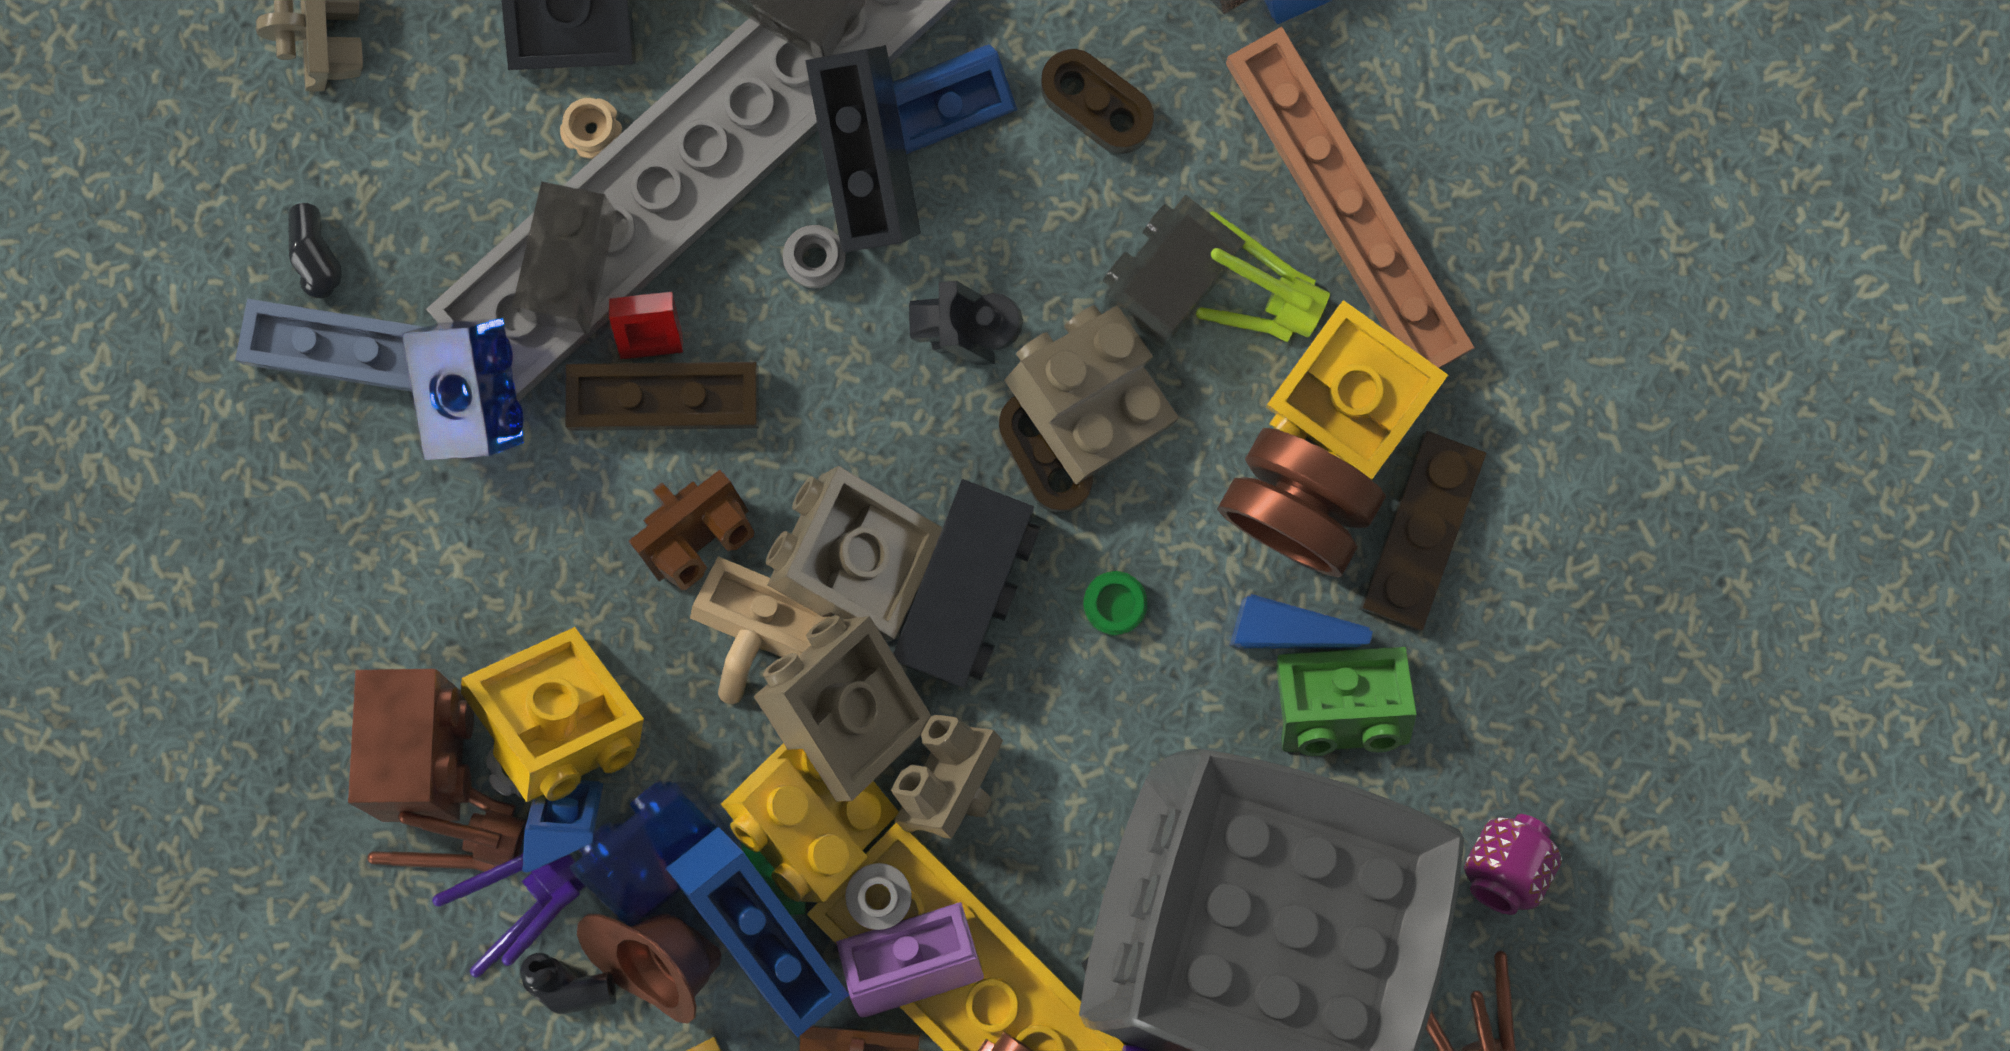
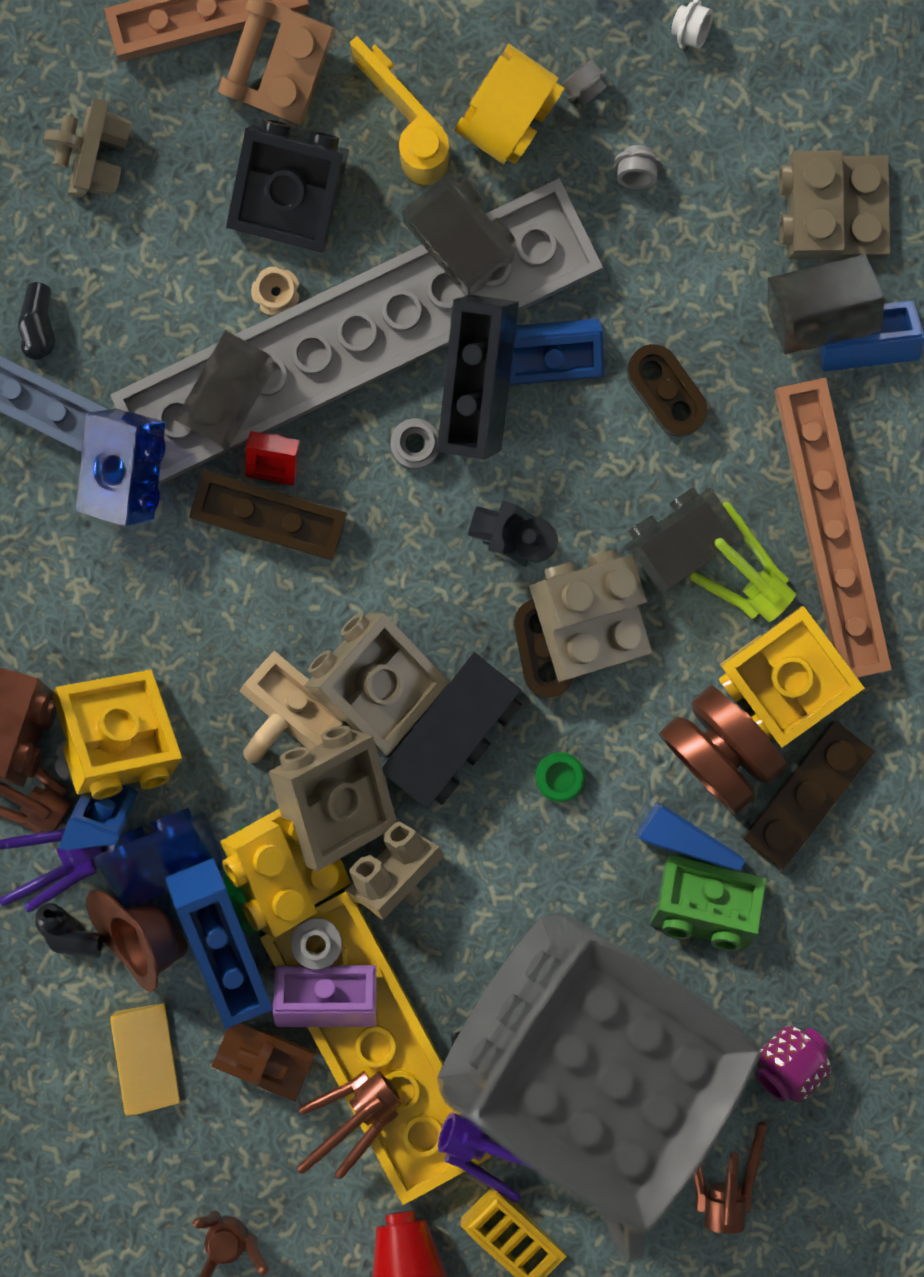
camera: 15 degrees right, 5 degrees up
(687, 525) = (259, 618): reddish brown hips -> none

